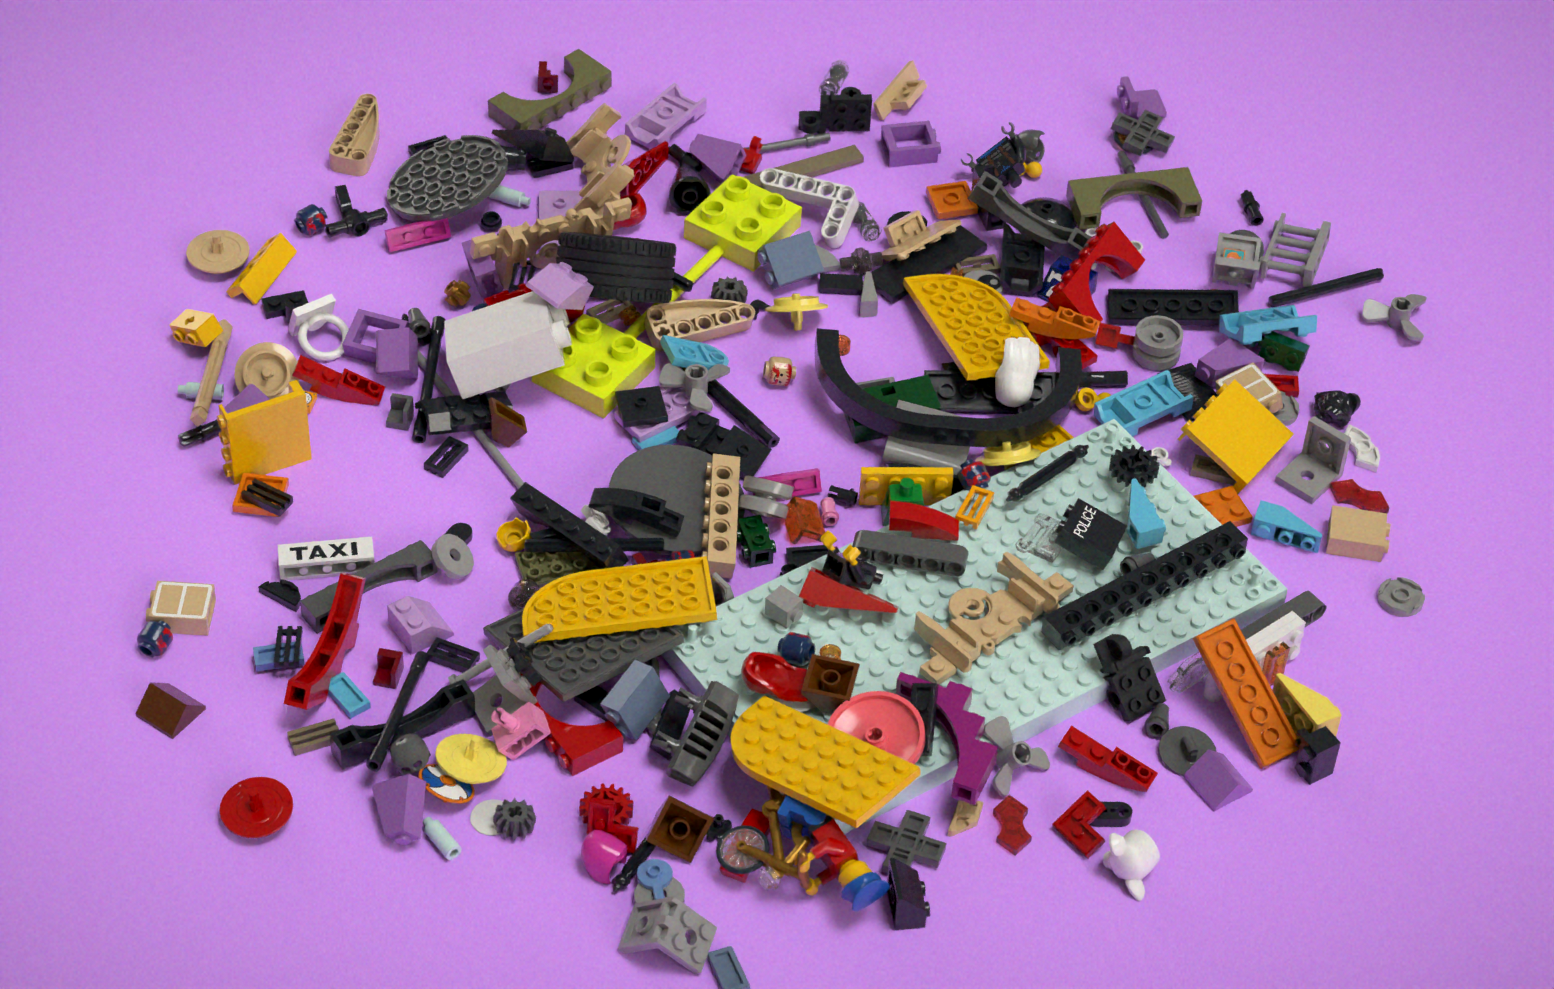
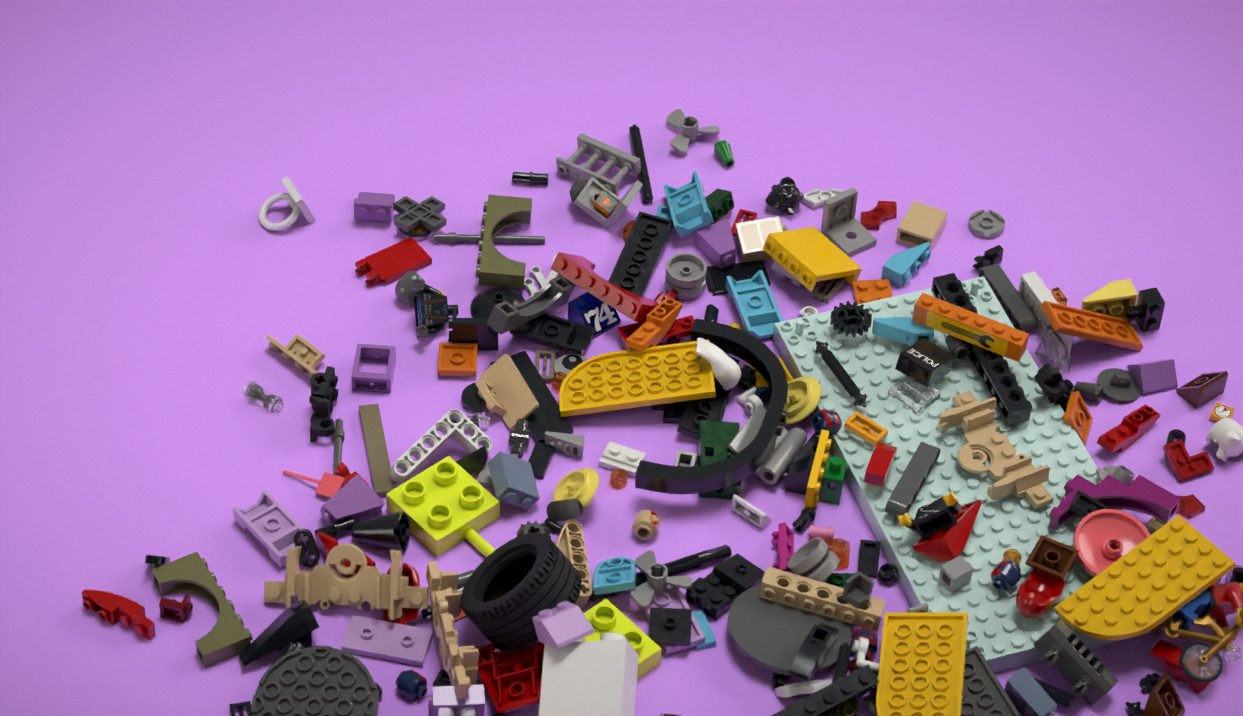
camera: 75 degrees left, 0 degrees up
(528, 49) = (118, 608): none -> red slope
(595, 51) = (156, 561): none -> black plate
(645, 138) = (311, 547): none -> black beam
(655, 552) = (860, 649): none -> white plate
(728, 528) = (858, 589): none -> dark grey panel
(743, 140) = (327, 485): none -> coral piece
(765, 301) = (564, 510): none -> black tile
(815, 229) = (474, 461): none -> black tile
(837, 451) = (750, 512): none -> slope
(870, 344) = (622, 458): none -> white plate
(1069, 132) = (392, 262): none -> red tile
(1095, 705) = (1078, 416): none -> orange plate
(1109, 43) = (294, 201): none -> white tile
(1152, 555) = (970, 327): none -> orange brick
(1186, 857) = (1221, 411): none -> tile
(1216, 832) = (1203, 388): none -> slope
(1337, 601) = (990, 257): none -> black plate
(1382, 349) = (724, 152): none -> green cone

